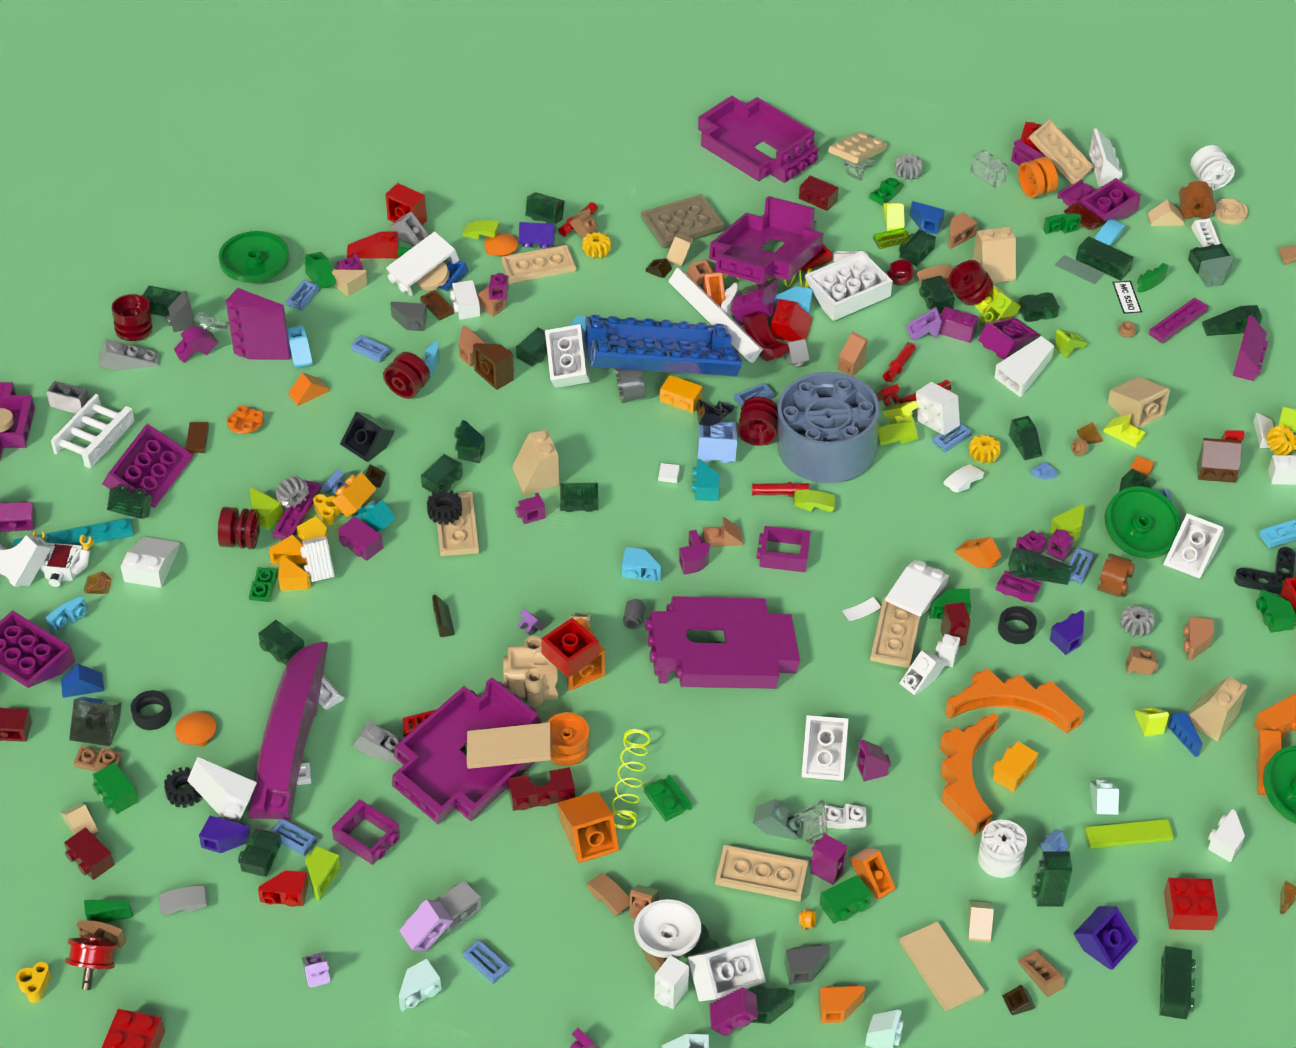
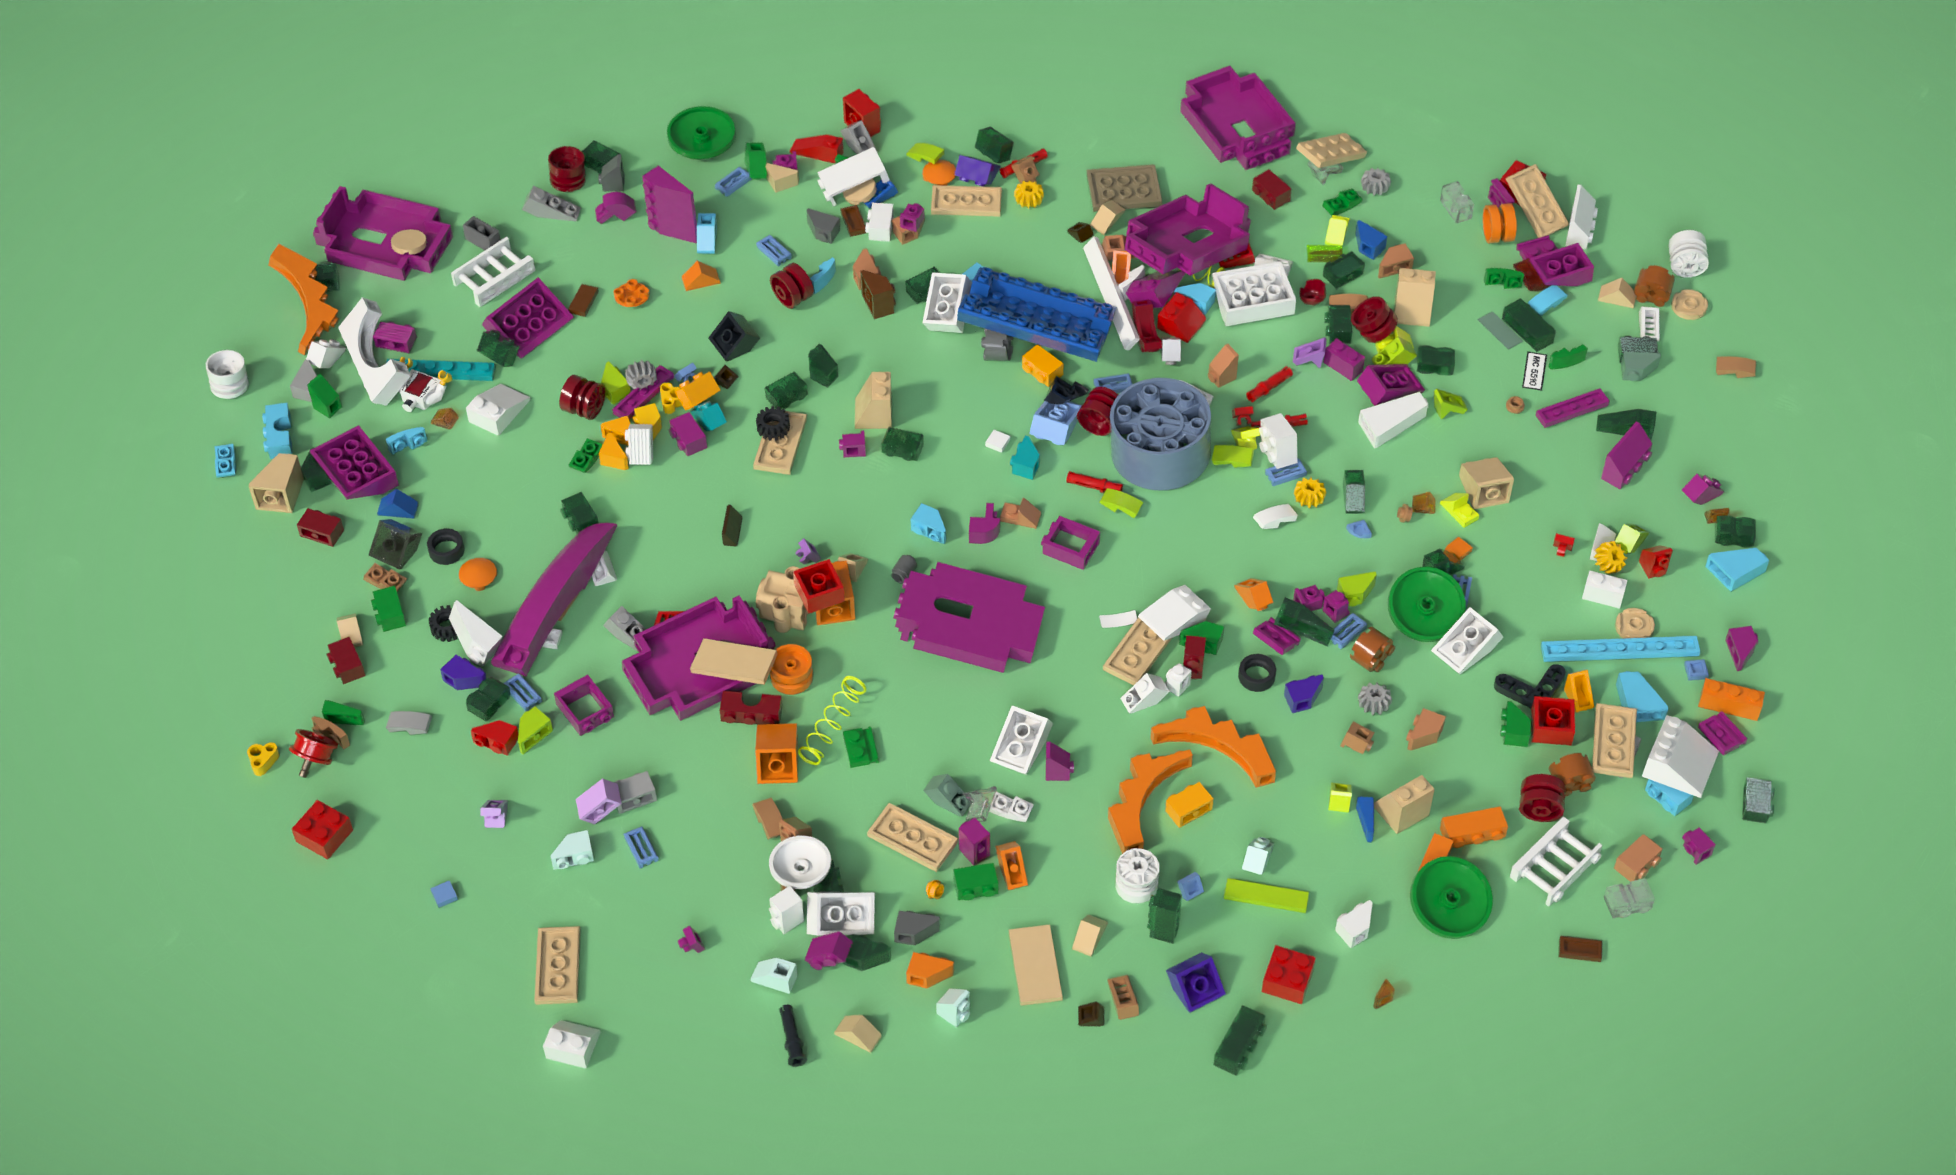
camera: 20 degrees right, 5 degrees up
(210, 322) = (633, 187): clear wing -> none
(1219, 460) = (1534, 562): slope -> none

